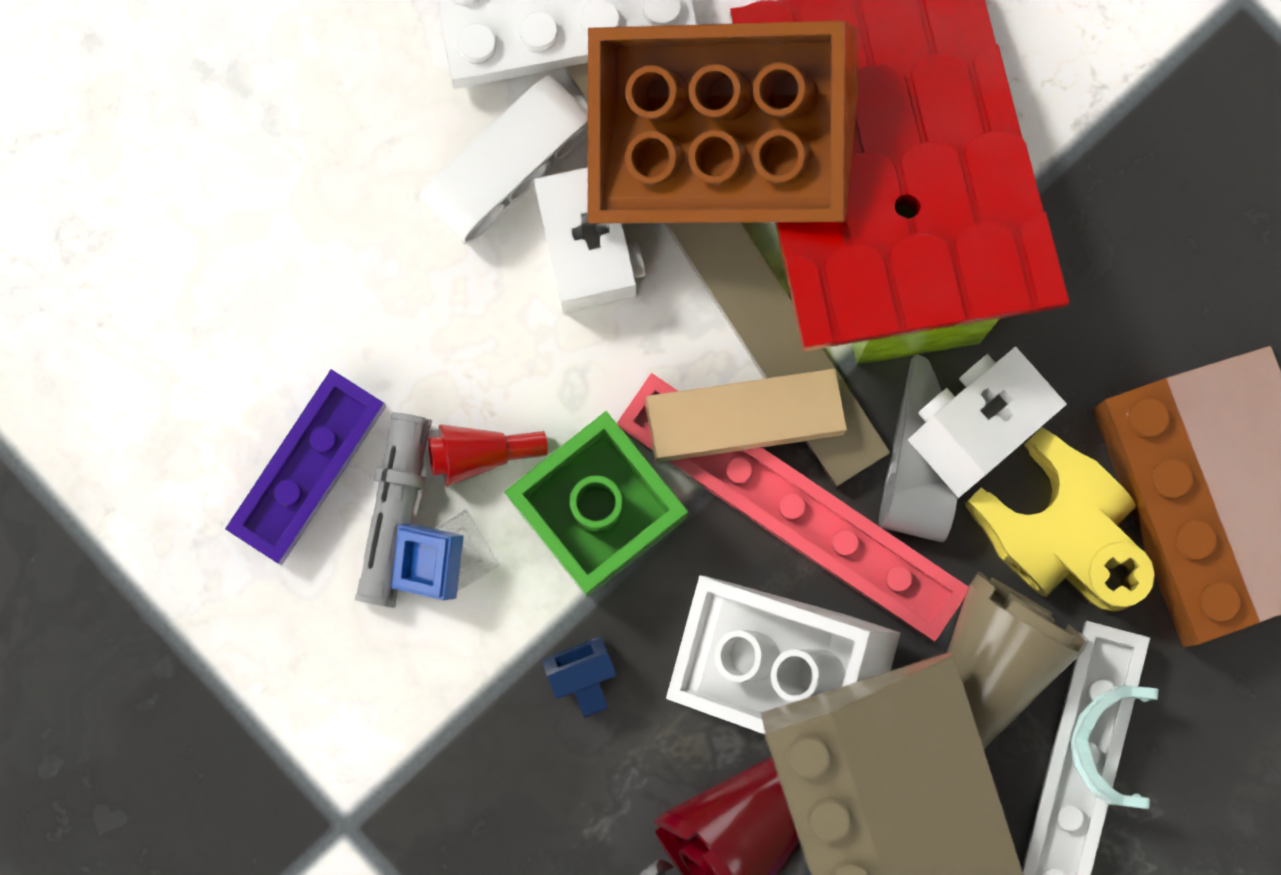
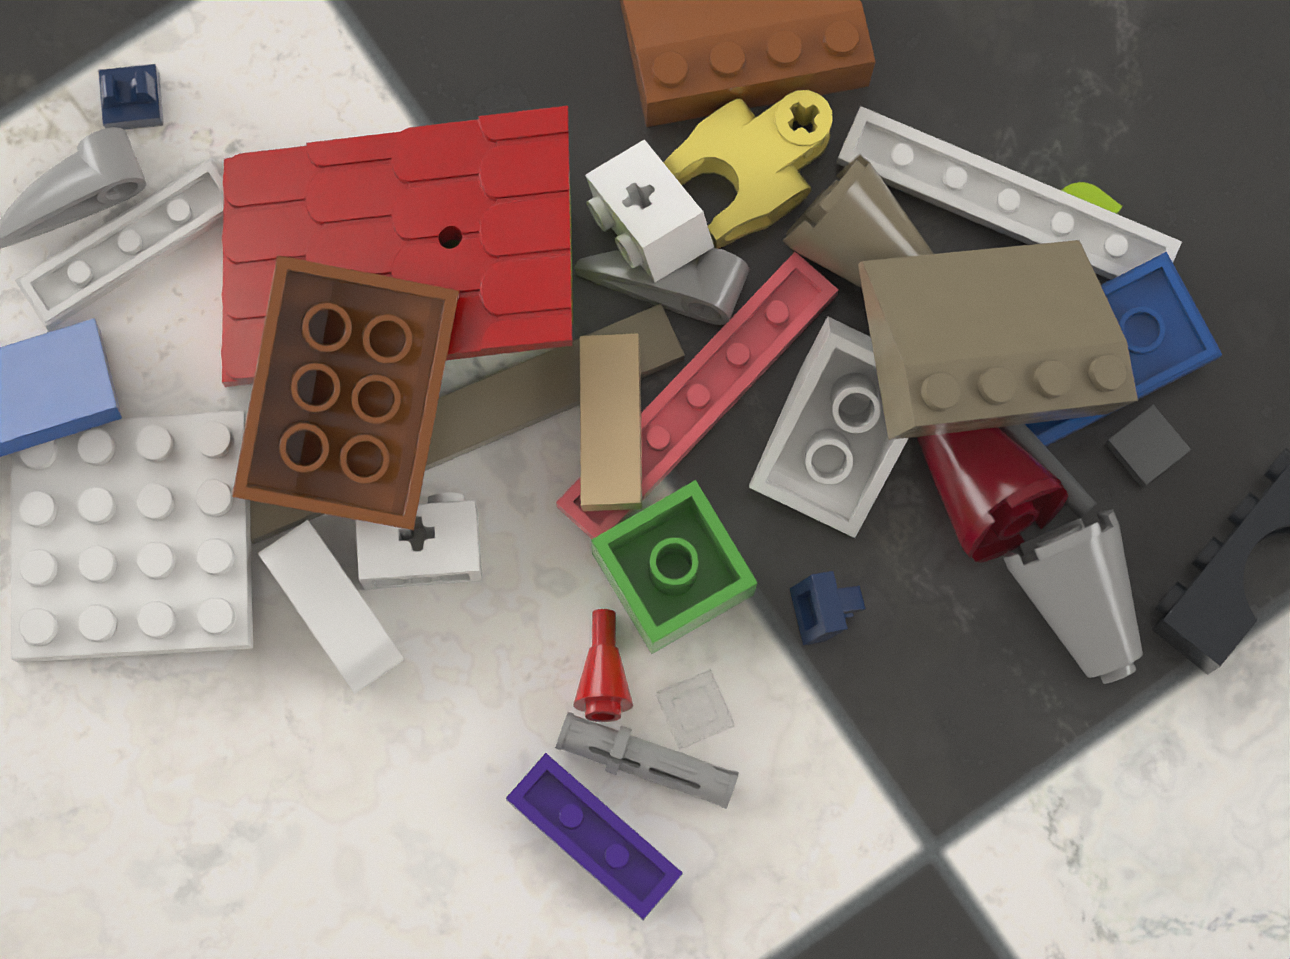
camera: 85 degrees left, 5 degrees down
(427, 561) = (702, 731): tile -> none
(1081, 752) = (935, 172): light aqua helmet -> none

